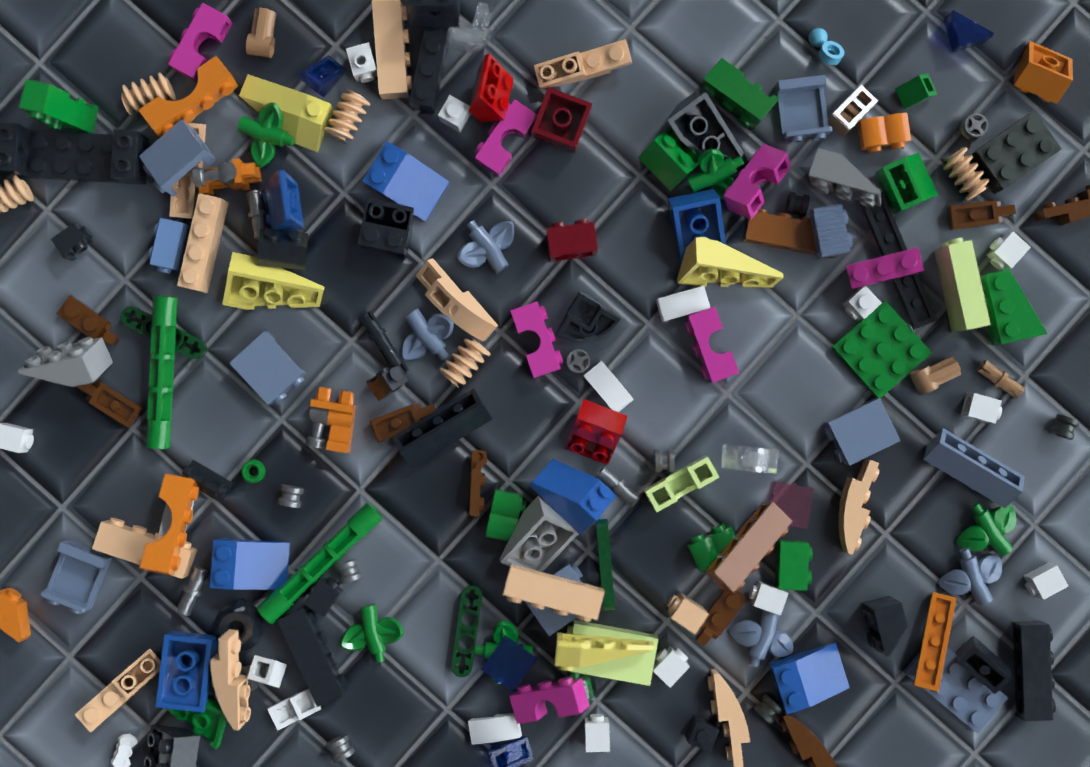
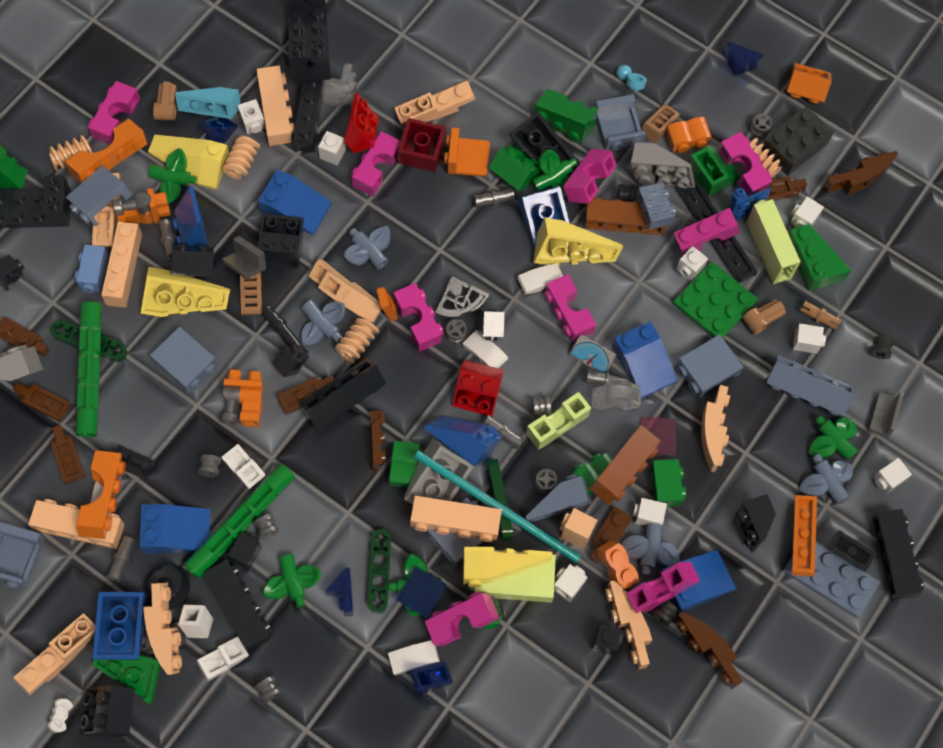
camera: 10 degrees left, 20 degrees down
(136, 468) = (66, 456): none -> reddish brown hinge
(246, 471) = (173, 443): green plate -> none
(315, 38) = (212, 101): none -> medium azure slope
(328, 498) = (243, 466): none -> white slope
(340, 281) = (254, 281): none -> medium nougat slope
(343, 252) = (246, 259): none -> flat silver panel
(426, 646) = (343, 586): none -> clear blue slope
(502, 325) = (387, 304): none -> orange tile
(572, 240) = (440, 234): dark red brick -> none
(597, 733) = (510, 651): white brick -> none
(599, 579) = (495, 504): none -> teal piece
(614, 136) = (466, 155): none -> orange bracket
(618, 358) = (490, 323): none -> slope
(640, 194) = (493, 197): none -> flat silver pin
(658, 552) = (549, 478): none -> flat silver wheel
(678, 576) = (564, 497): none -> sand blue slope
(724, 656) = (617, 563): none -> orange brick
(729, 403) = (592, 354): none -> slope
(741, 435) = (600, 378): none -> flat silver axle
(782, 692) = (671, 583): none -> dark pink arch
(789, 416) = (645, 359): none -> slope
(916, 91) = (709, 103): green brick -> none
(931, 234) = (742, 204): none -> blue hinge
(956, 201) = (739, 150): none -> dark pink arch
(1053, 507) = (885, 414): none -> flat silver panel

